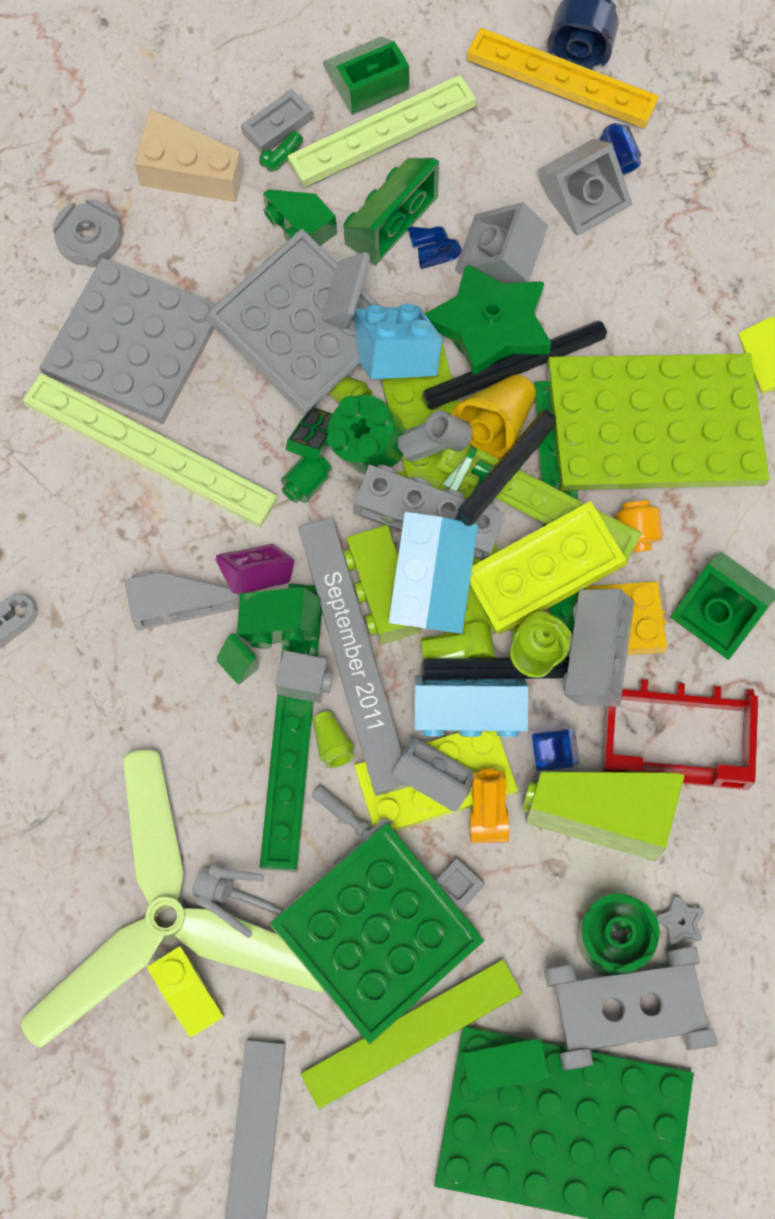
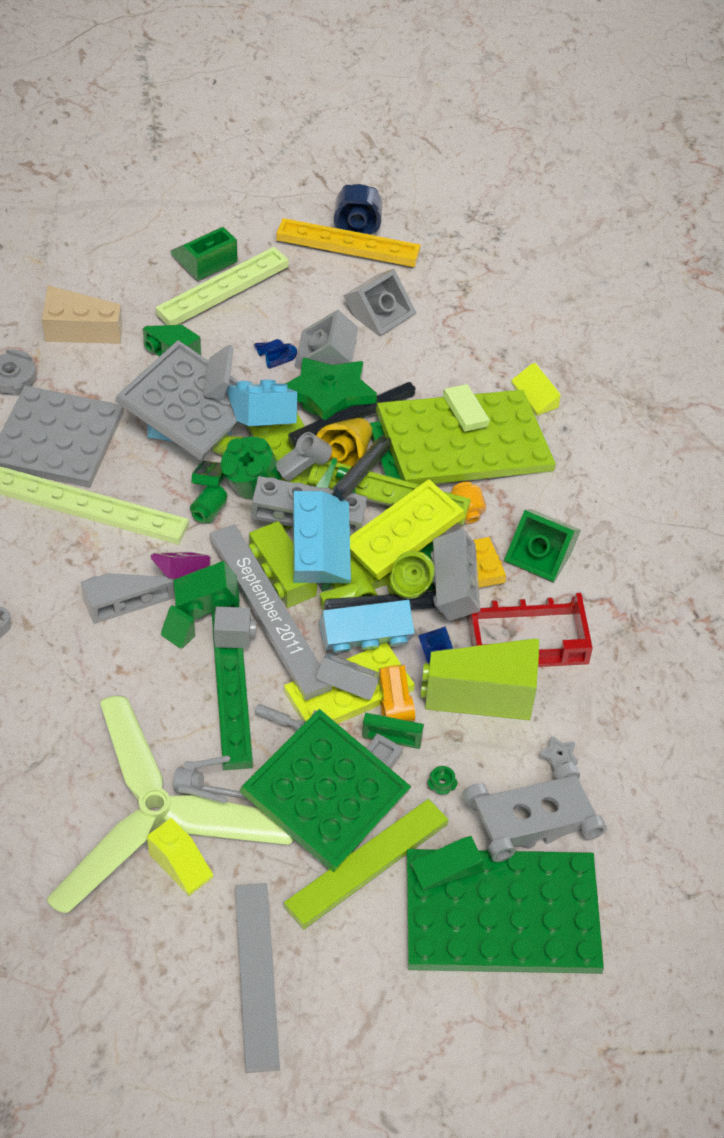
camera: 15 degrees left, 20 degrees down
(275, 160) = (145, 314): green arm -> none
(277, 121) = (143, 289): light grey plate -> none
(332, 741) = (264, 672): lime cone -> none
(393, 208) = (244, 326): green slope -> none
(476, 856) = (397, 730): none -> green tile
(522, 945) = (442, 773): none -> green plate
(624, 146) = (405, 276): clear blue brick -> none
(626, 915) = (513, 761): green brick -> none
(665, 382) = (466, 407): none -> yellowish green tile

